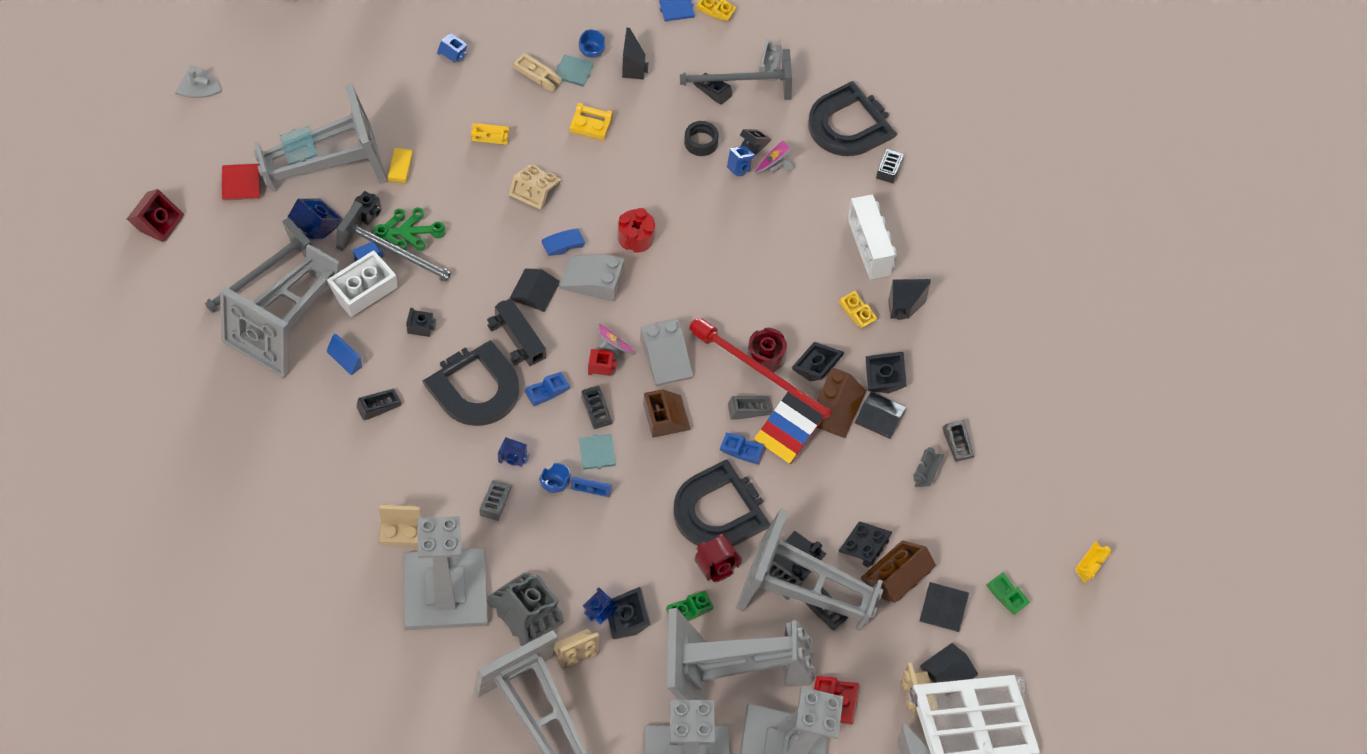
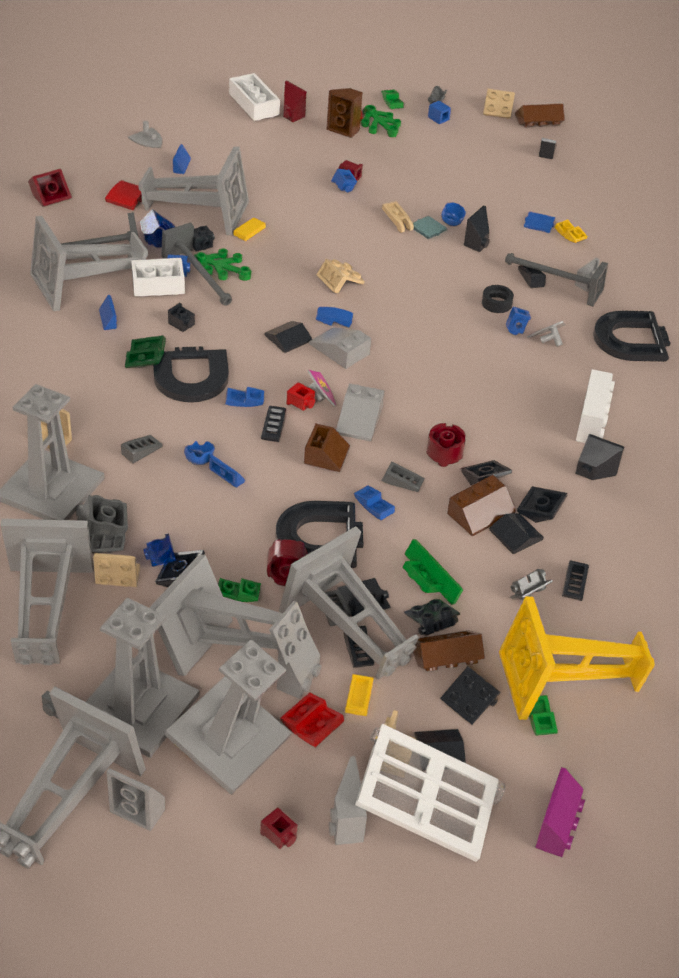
camera: 30 degrees right, 15 degrees down
(262, 103) = (181, 160): none -> blue slope
(298, 145) = (179, 180): clear light blue piece -> none
(368, 410) = (106, 352): black slope -> none
(419, 386) = (145, 351): none -> dark green slope
(446, 27) = (354, 168): none -> dark red brick
(490, 133) = (331, 235): yellow hinge -> none
(513, 452) = (180, 422): clear blue brick -> none
(519, 331) = (252, 353): black brick -> none
(590, 126) = (416, 262): yellow plate -> none
(597, 451) = (250, 454): clear light blue piece -> none
(636, 230) = (398, 329): red brick -> none
(754, 140) = (540, 316): black slope -> none
(792, 419) = (432, 495): flag -> none
(838, 501) = (429, 573): none -> green bracket
(855, 655) = (359, 695): none -> yellow tile
(857, 310) = (548, 453): yellow slope -> none
(886, 175) = (646, 375): slope -> none
(985, 552) = (530, 662): none -> yellow piece
(1076, 680) = (561, 815): none -> magenta slope
(1091, 561) = (643, 728): yellow hinge -> none

